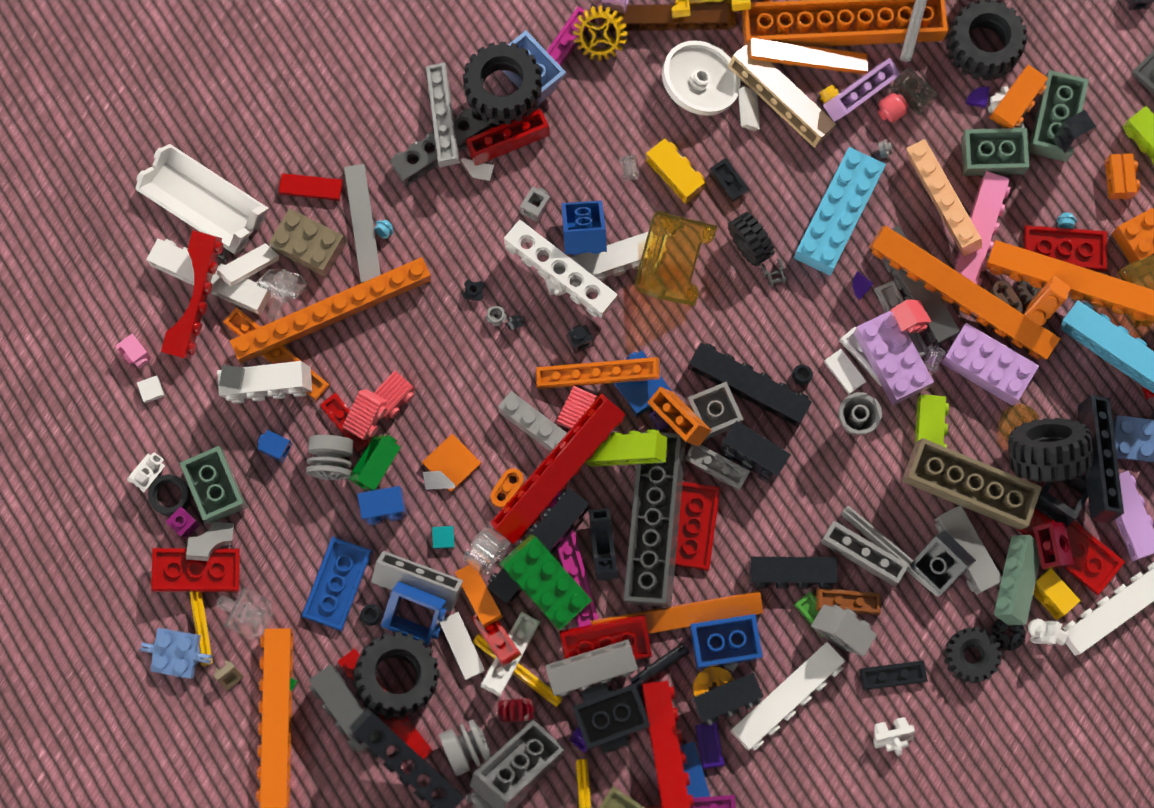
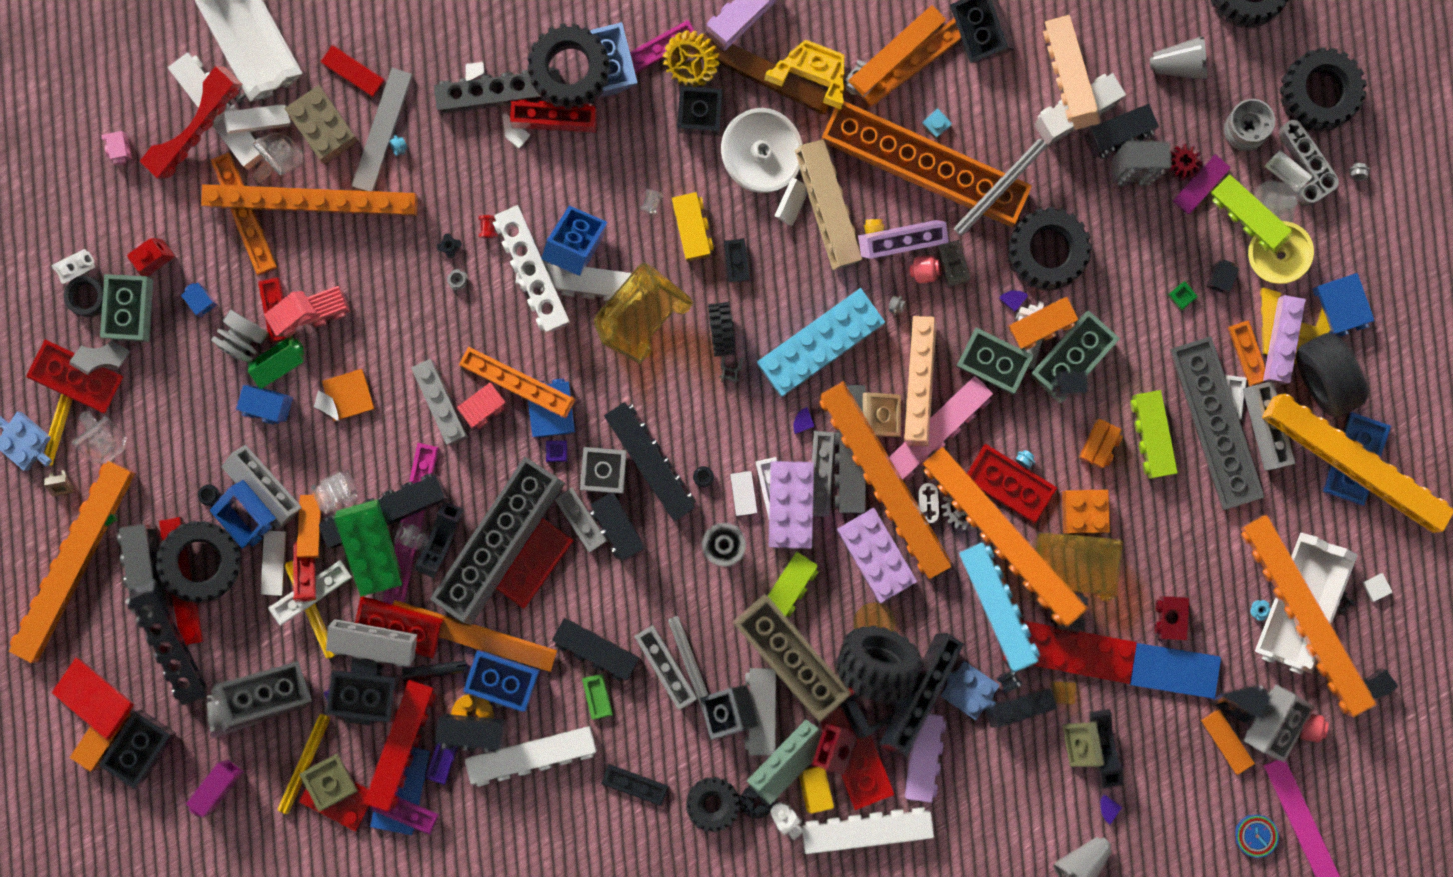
camera: 30 degrees right, 10 degrees up
(150, 389) = (116, 189): white tile -> none
(182, 523) = (84, 328): magenta brick -> none
(210, 431) = (149, 256): none -> red torso
(231, 377) = (184, 222): dark grey tile -> none
(270, 380) = (216, 238): white brick -> none
(337, 584) = (193, 451): blue tile -> none
(417, 134) = (474, 70): none -> white sticker
(442, 115) = (504, 64): light grey tile -> none
(443, 537) = (306, 458): teal tile -> none
(465, 747) = (223, 654): light grey wheel -> none
(499, 257) = (487, 226): none -> red bush
(506, 488) = (384, 442): orange plate -> none
(515, 322) = (470, 295): black plate -> none
(515, 710) = (288, 644): dark red gear -> none
(535, 196) = (539, 192): light grey brick -> none
(557, 469) = (433, 452): red brick -> none
(576, 556) = (412, 537): none -> clear bracket
(579, 338) = (520, 340): black brick -> none
(630, 72) = (699, 111): none -> black brick
(630, 449) = (501, 465): lime brick -> none
(679, 416) = (565, 461): orange brick -> none
(808, 56) = (873, 180): tile -> none
(844, 629) = (608, 725): light grey brick -> none
(859, 602) = (630, 701): dark orange tile -> none
(893, 739) = (595, 834): white hips -> none
(911, 316) = (824, 478): coral brick -> none
(928, 239) = (883, 413): none -> tan tile
(933, 358) = (827, 524): clear bush -> none
(1047, 301) = (954, 528): orange brick -> none
(1115, 26) = (1182, 295): none -> green tile

